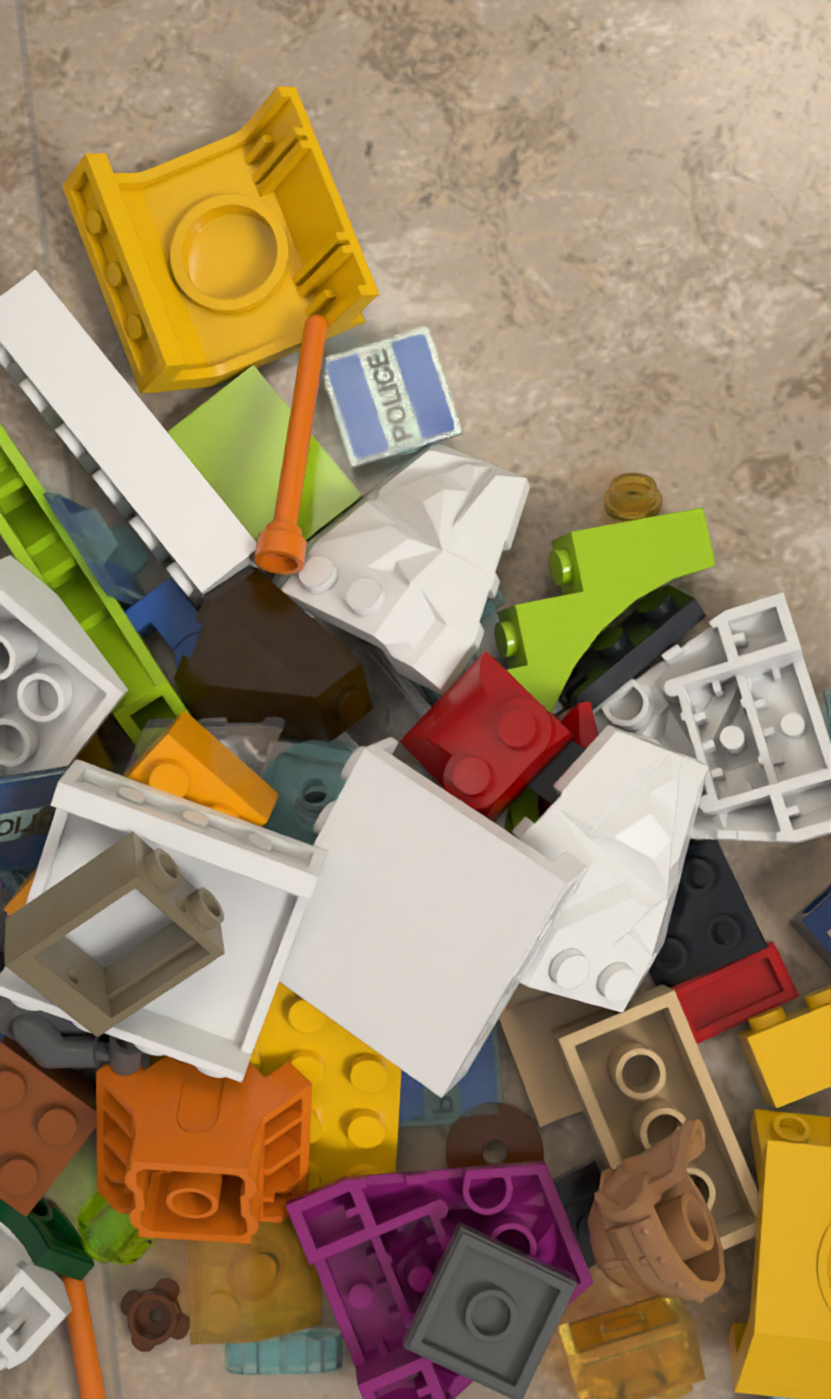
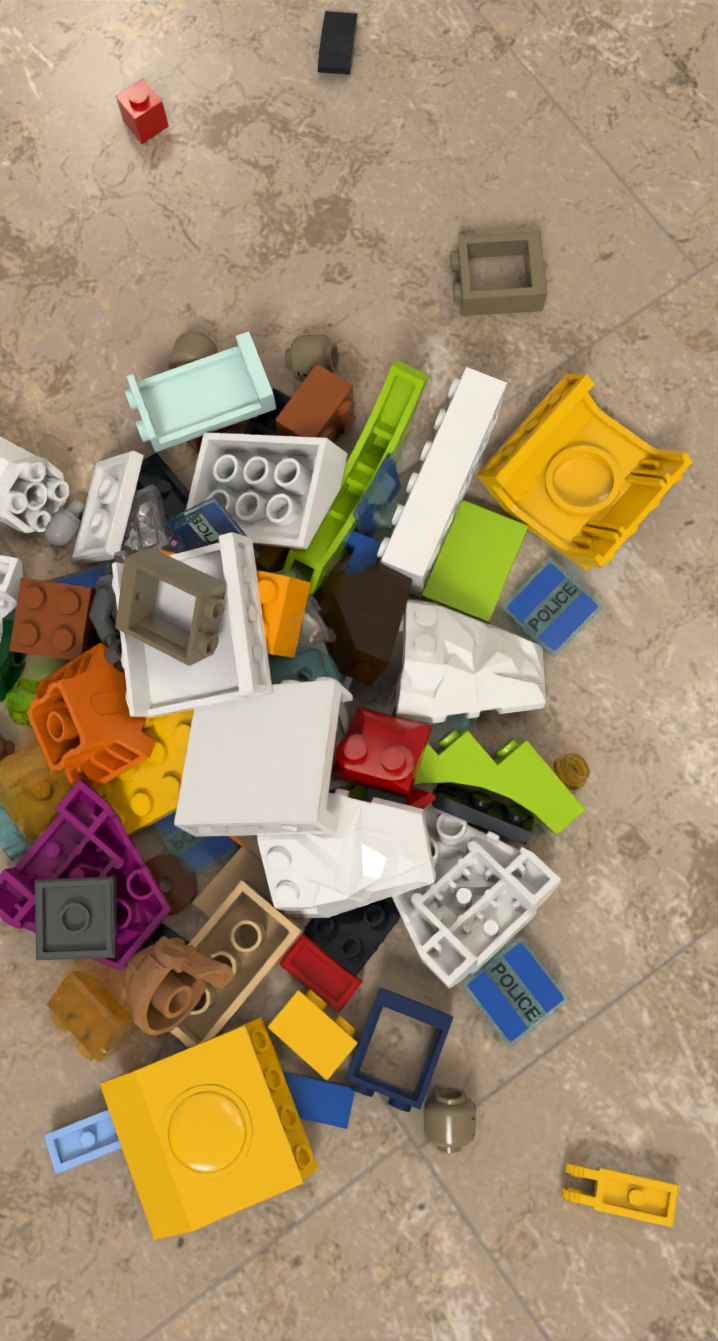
camera: 65 degrees right, 5 degrees down
(281, 544) = (430, 587): orange piece -> none

